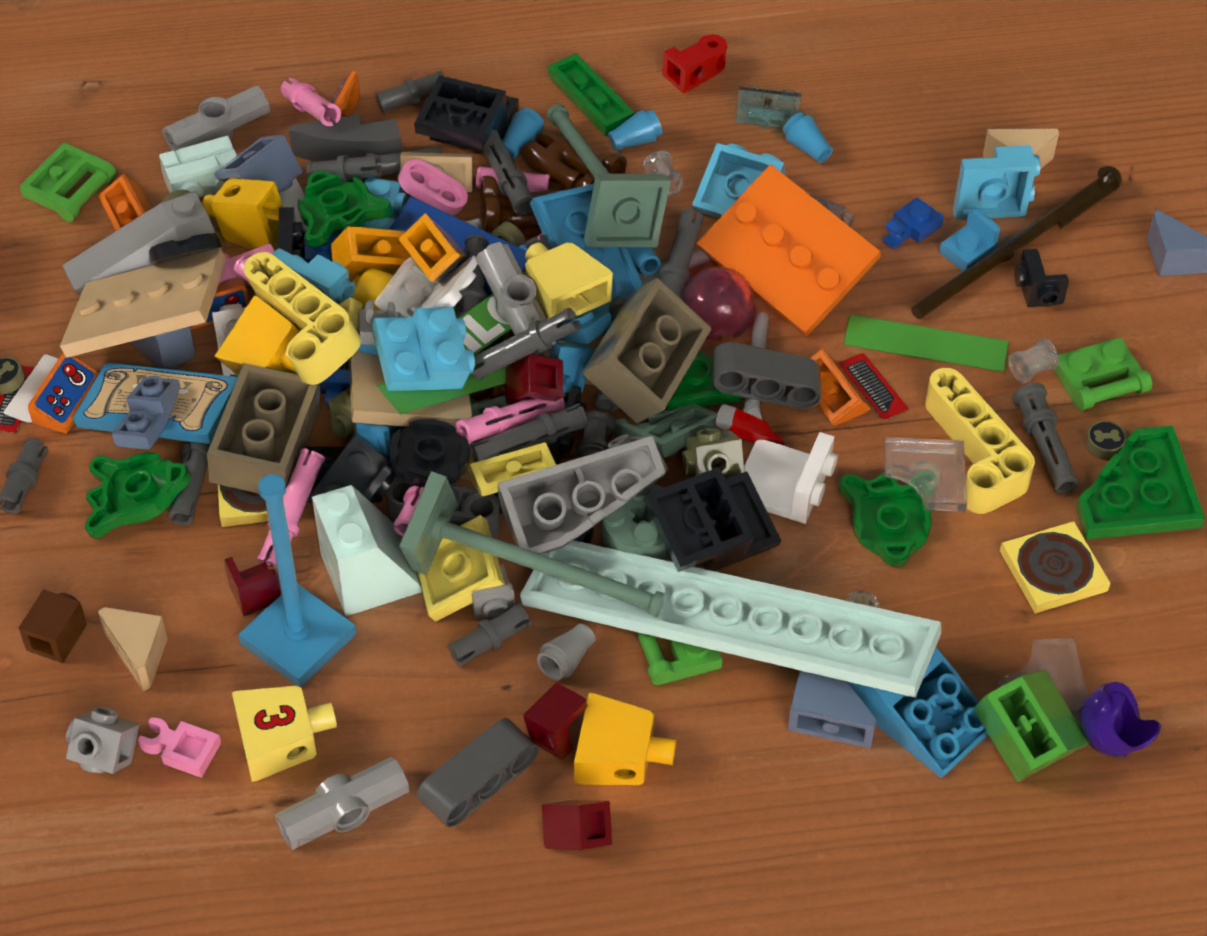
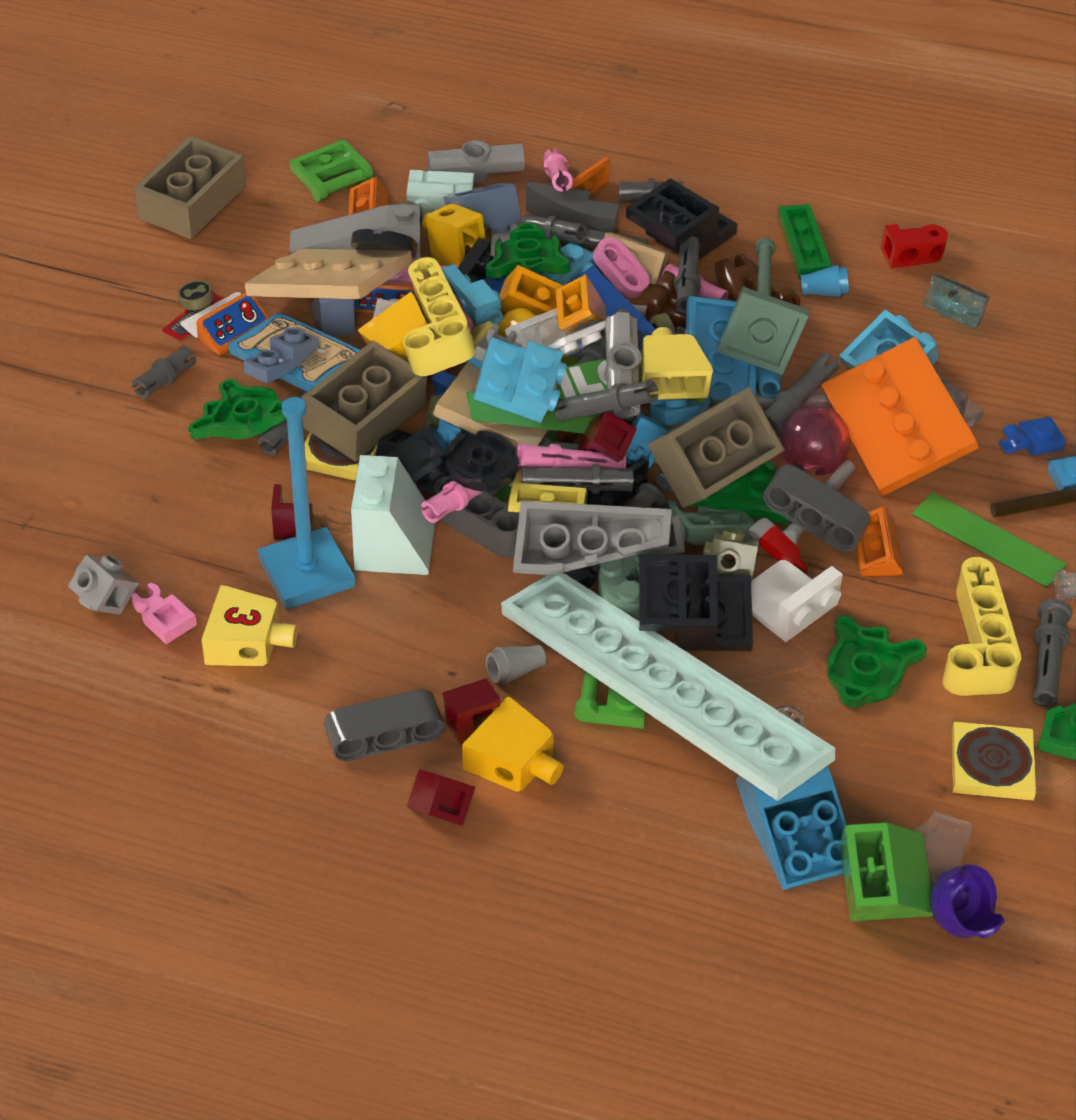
camera: 25 degrees right, 5 degrees down
(53, 625) = (119, 488): reddish brown brick -> none
(137, 640) = (178, 524): tan slope -> none
(295, 499) = (342, 478): bright pink pin -> none
(341, 803) = (261, 704): light grey piece -> none
(432, 523) = (452, 514): sand green tile -> none
(458, 573) = (462, 564): light yellow tile -> none
(489, 635) = (459, 625): dark grey pin -> none
(493, 601) = (479, 594): light grey bracket -> none
(522, 129) = (725, 248): dark azure cone -> none
(664, 165) = (828, 328): clear bush -> none
(805, 135) = (977, 334): dark azure cone -> none
(830, 711) = (709, 793): sand blue slope -> none
(873, 386) = (917, 557): sticker -> none
(931, 468) = (922, 637): clear tile -> none

